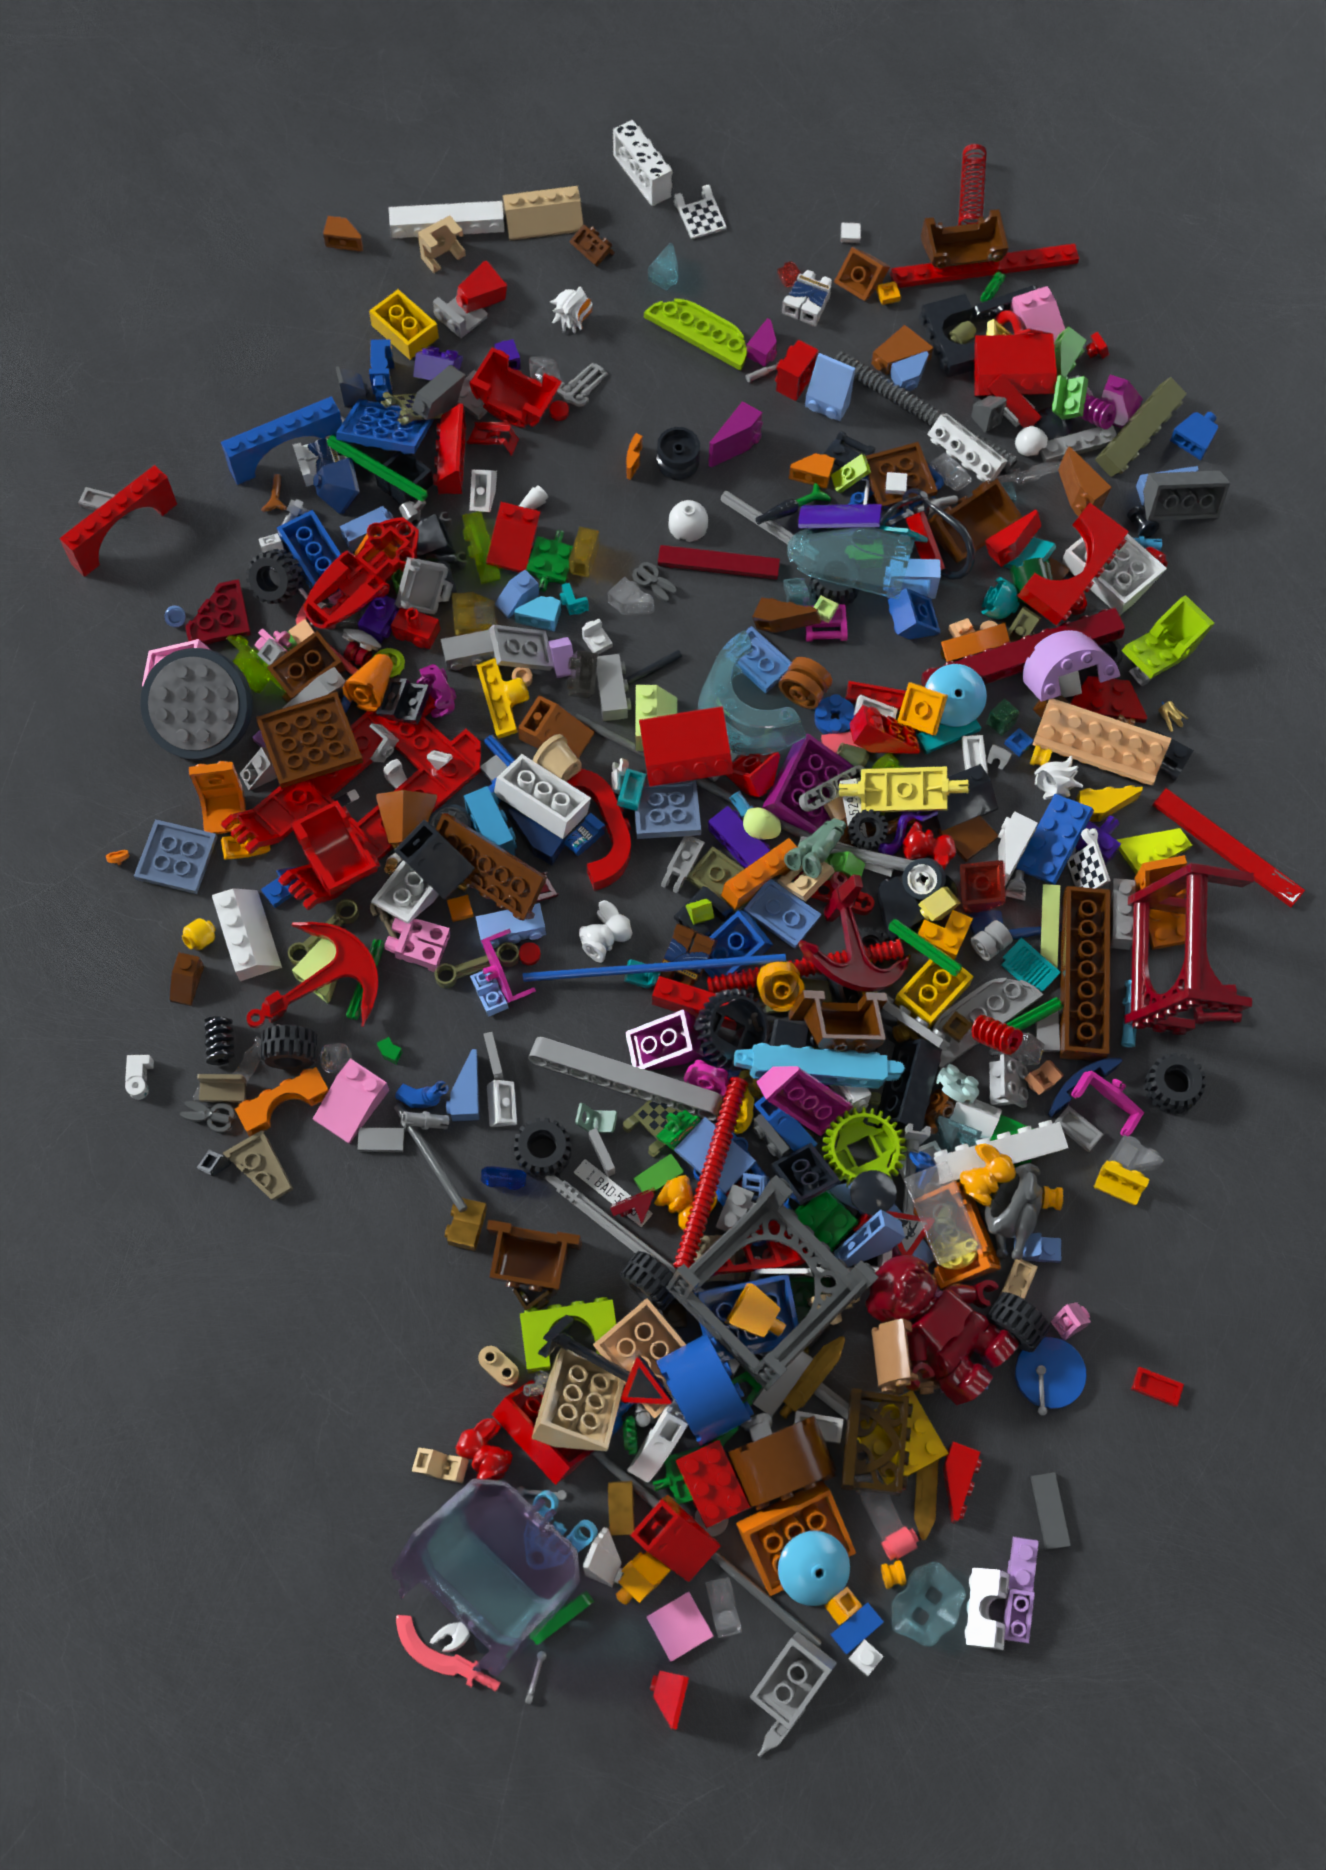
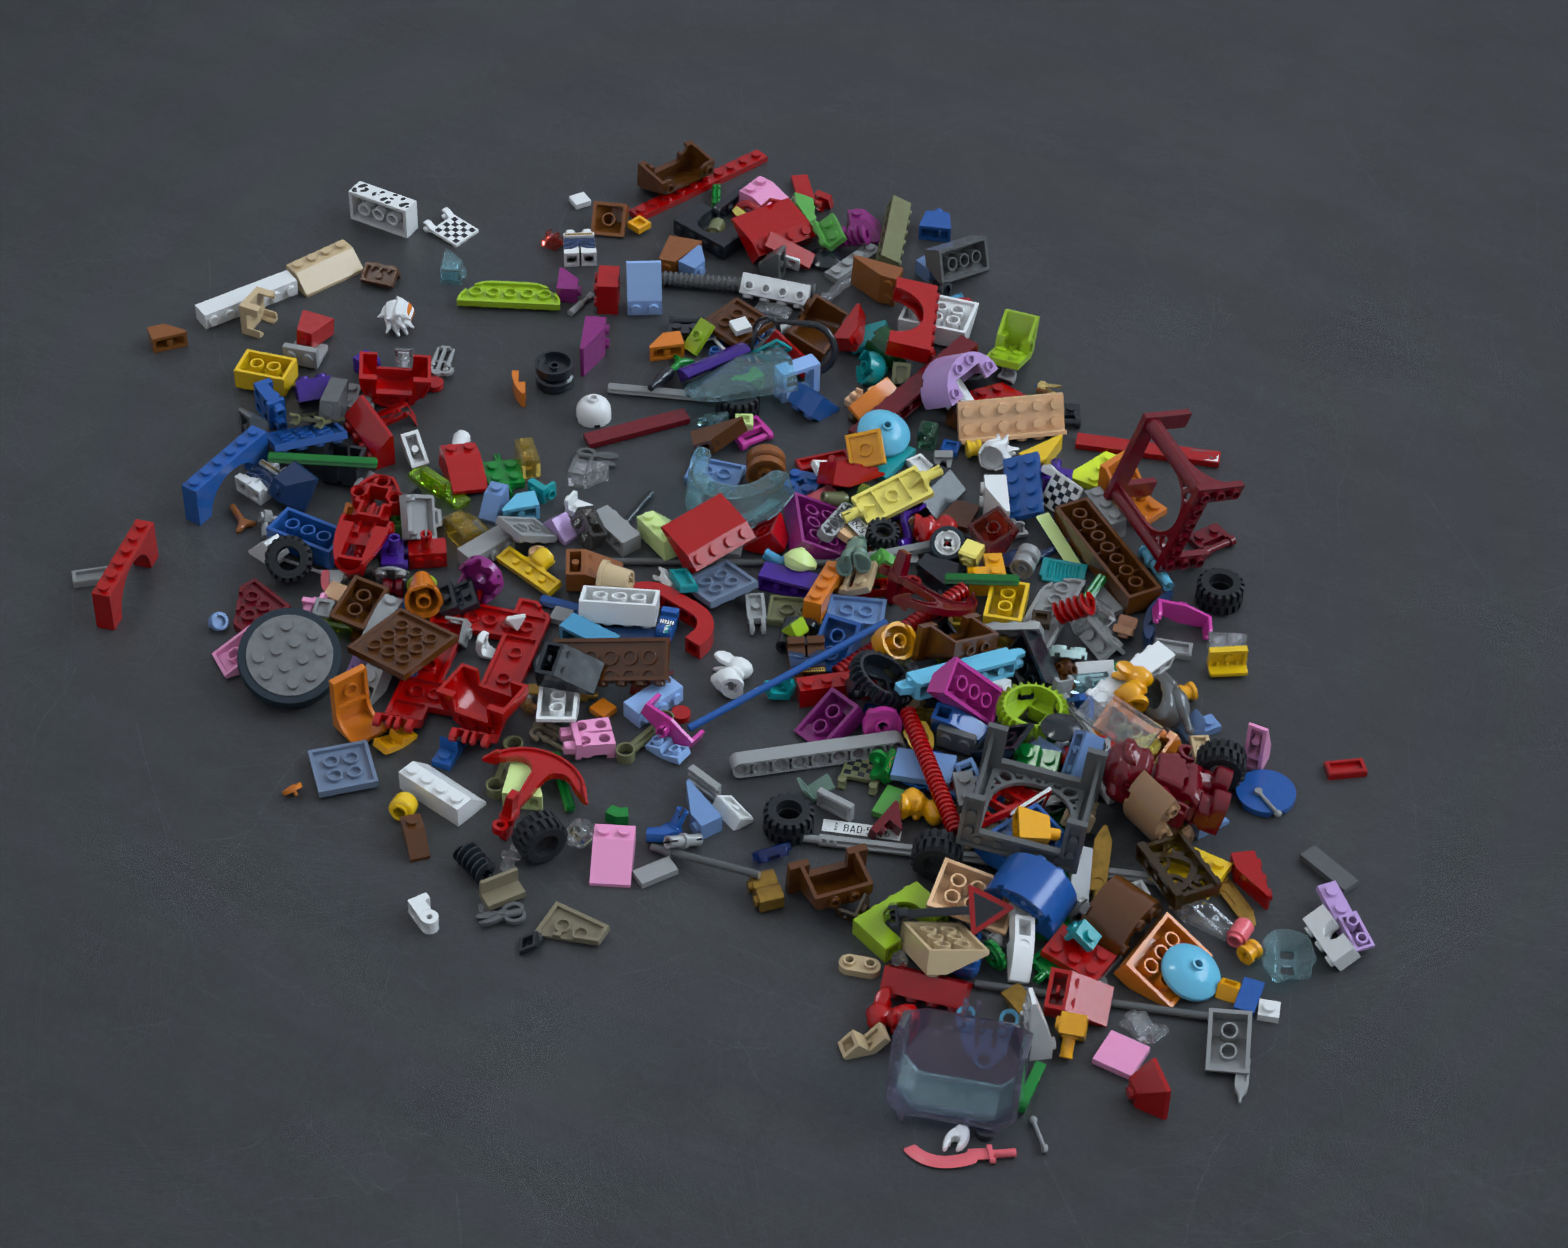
camera: 30 degrees left, 25 degrees down
(257, 1113) = (571, 863): orange arch -> none
(356, 530) = (334, 506): medium blue brick -> none
(404, 812) = (516, 658): dark orange slope -> none
(723, 1471) = (1084, 934): none -> teal bracket
(970, 161) = (636, 130): red piece -> none
(1030, 441) = (817, 271): white hair -> none
(1089, 318) = (802, 185): none -> red tile

